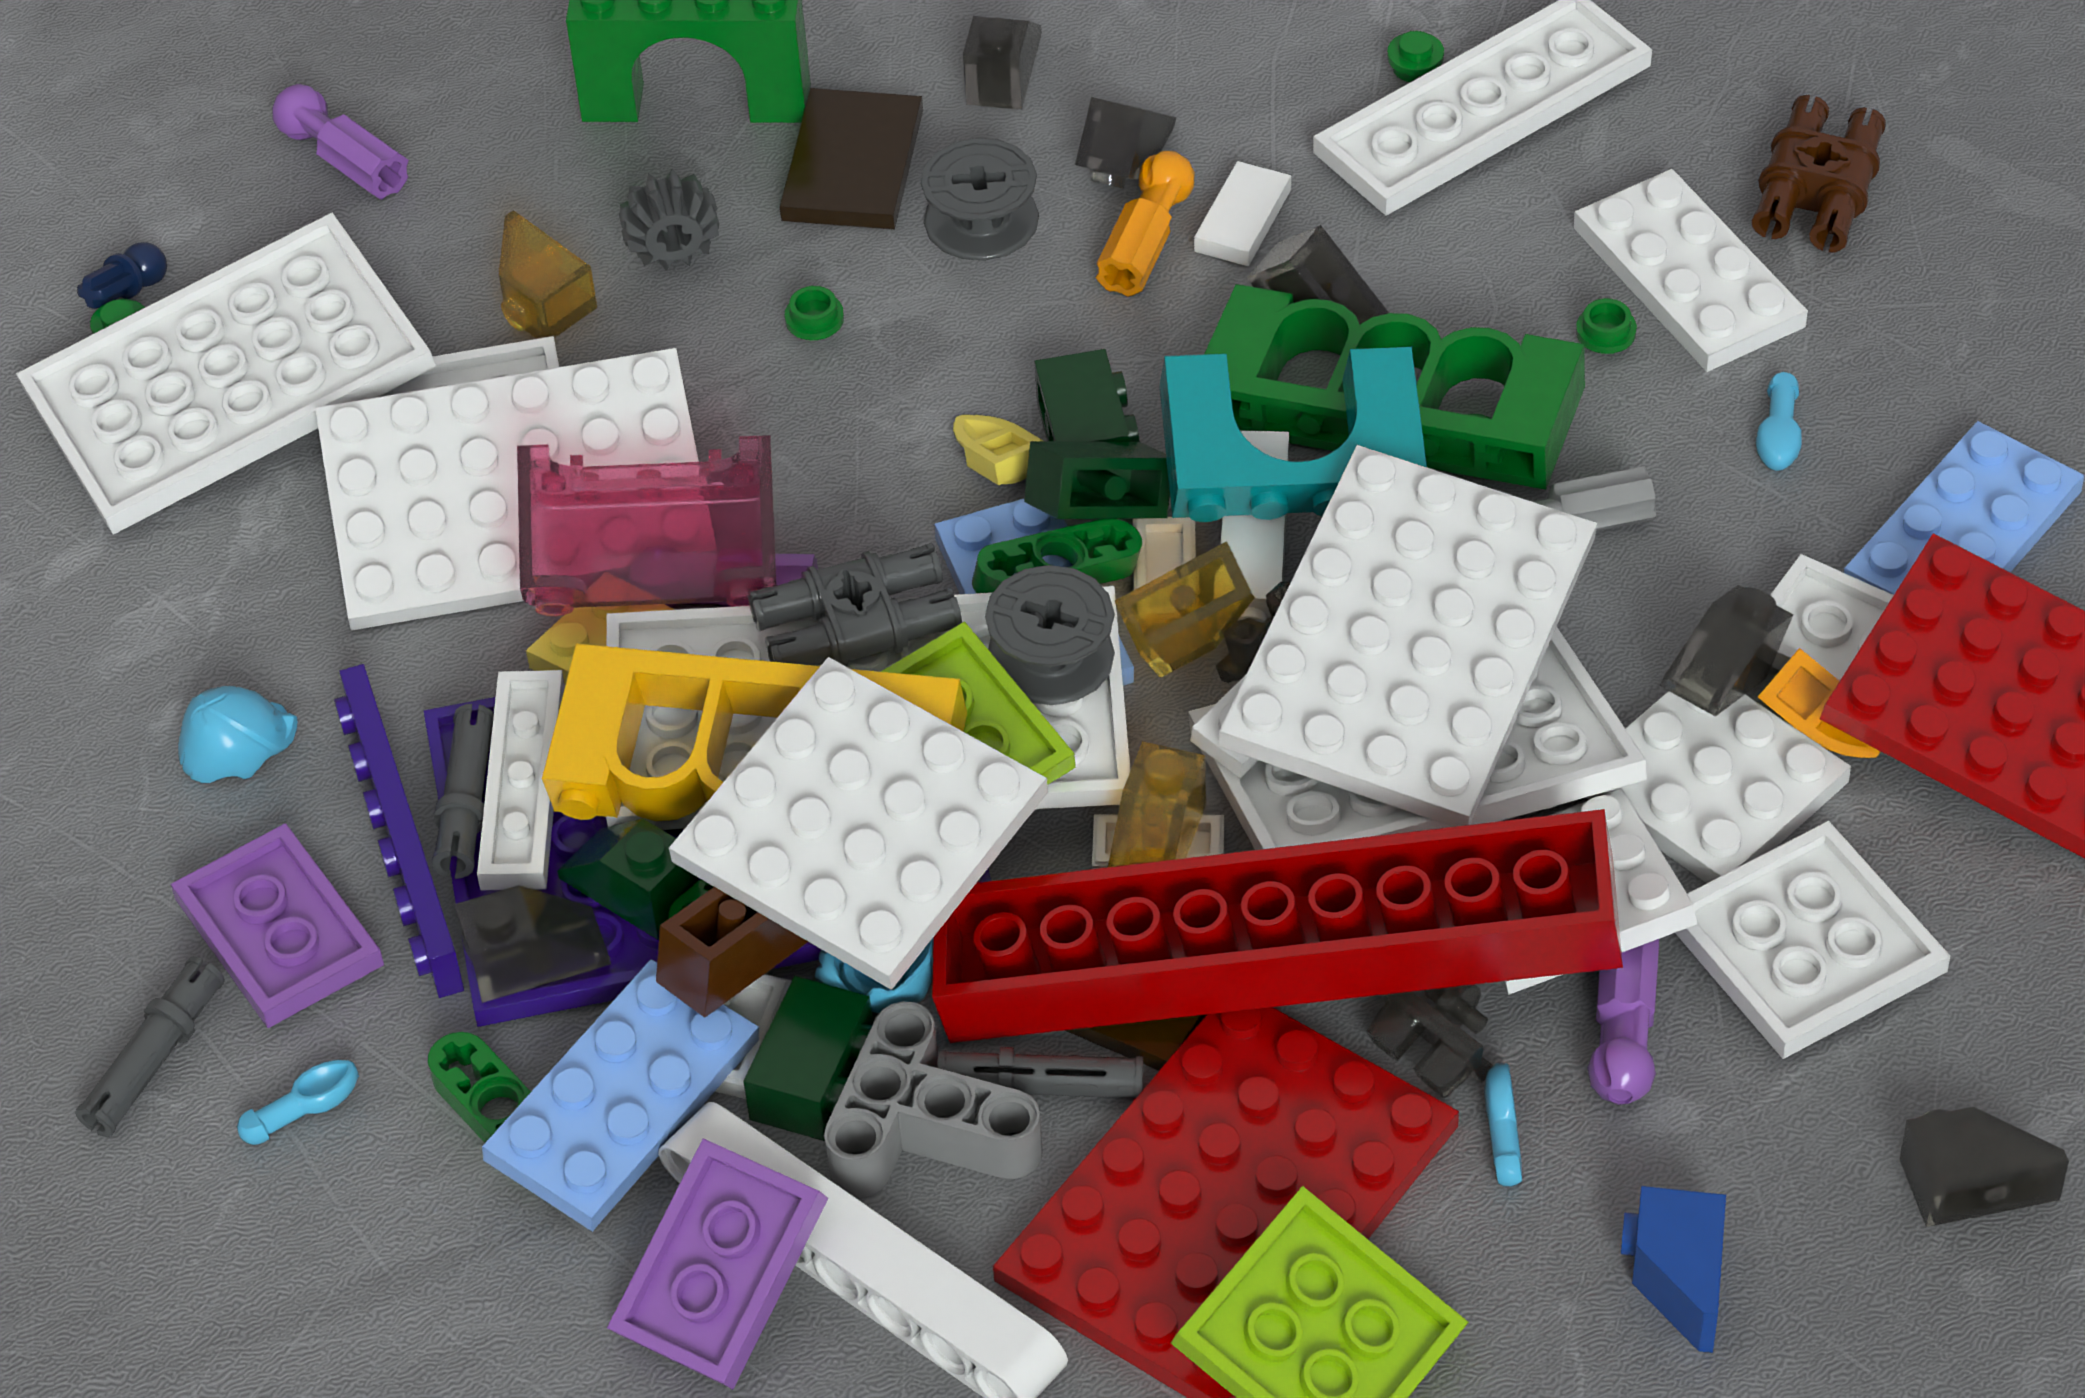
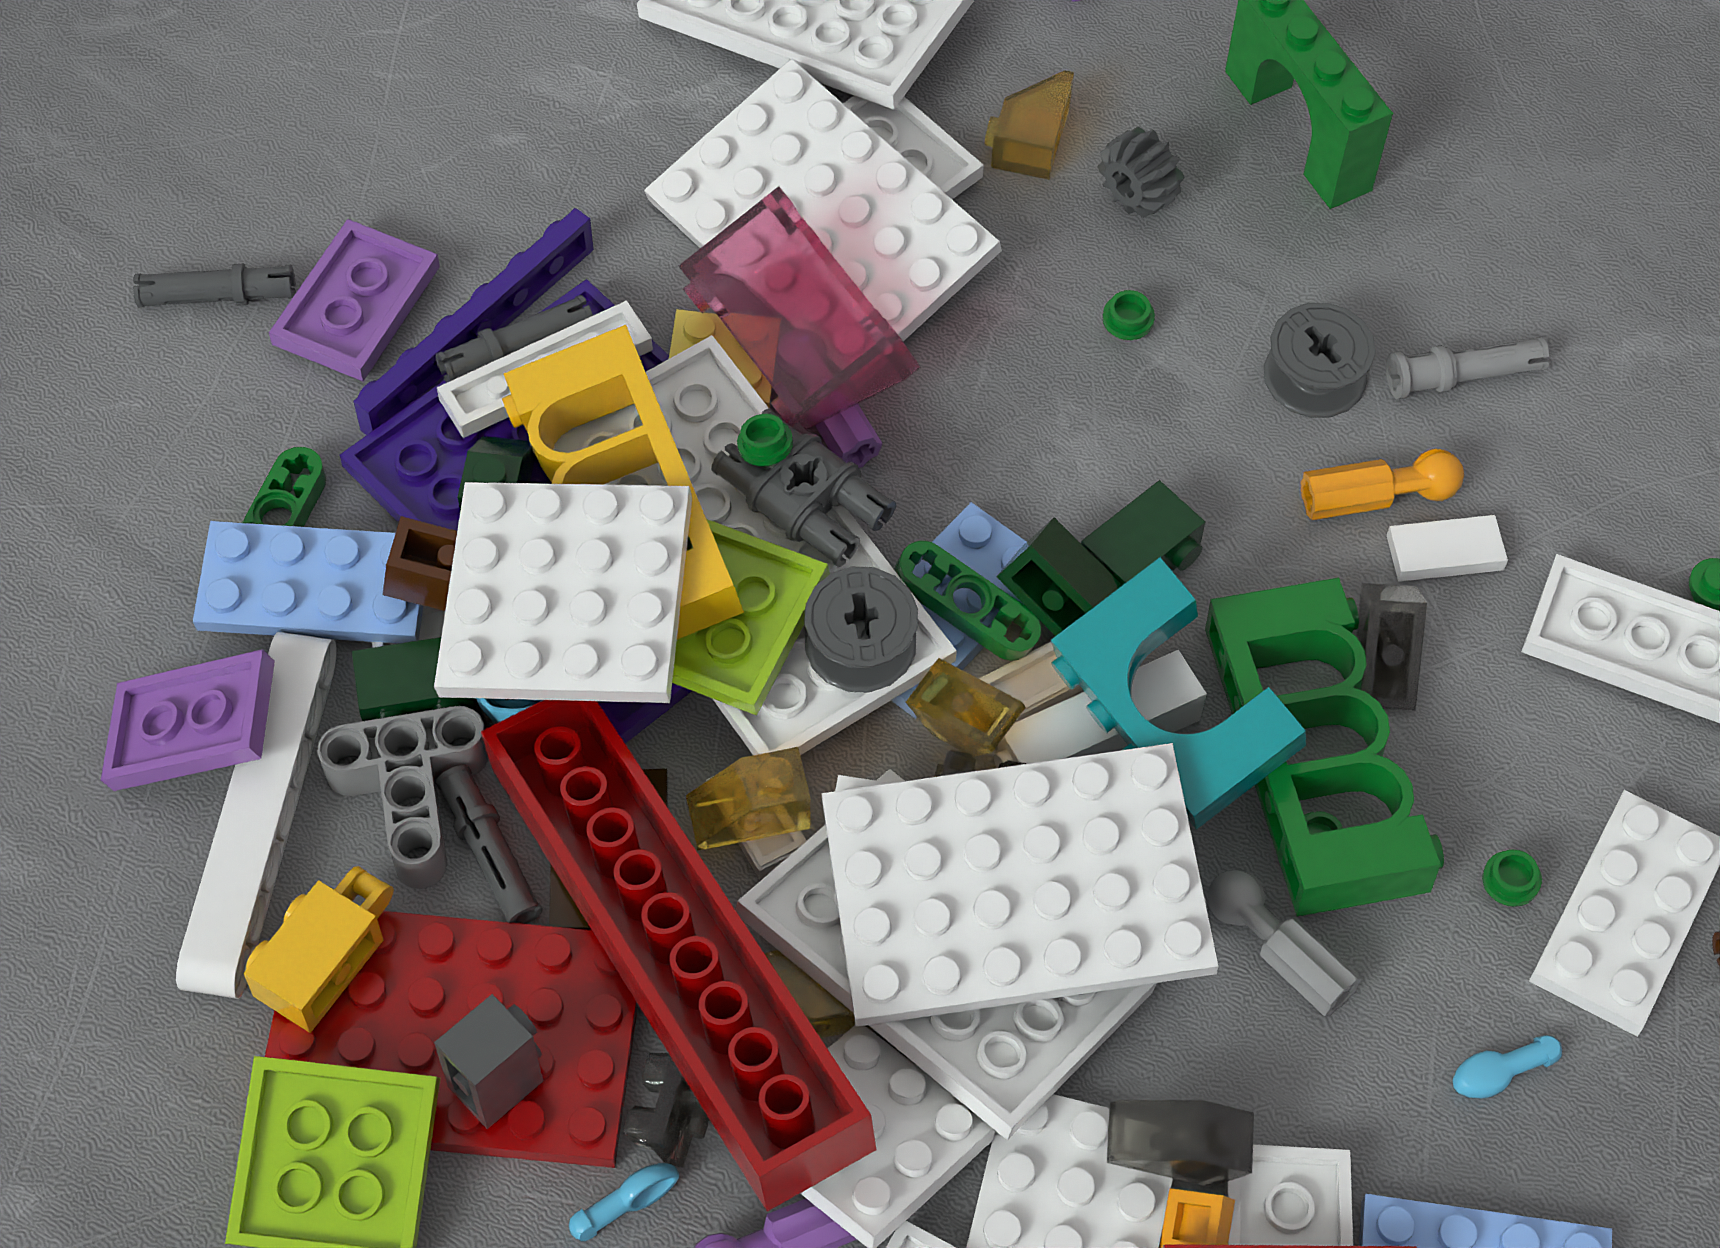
camera: 55 degrees right, 10 degrees up
(232, 733) = (505, 181): medium azure hair -> none
(312, 1093) = (229, 401): medium azure piece -> none
(527, 940) = (399, 450): clear smoke slope -> none
(798, 597) = (764, 440): none -> green plate
(851, 158) = (1308, 256): dark brown tile -> none
(994, 447) = (1077, 500): light yellow plate -> none
(999, 61) = (1482, 295): clear smoke slope -> none
(1057, 120) = (1443, 368): none -> light grey pin
(1082, 1243) = (319, 948): none -> yellow brick
(1120, 140) = (1455, 419): clear smoke slope -> none
(1321, 1125) = (491, 1059): none -> dark grey brick

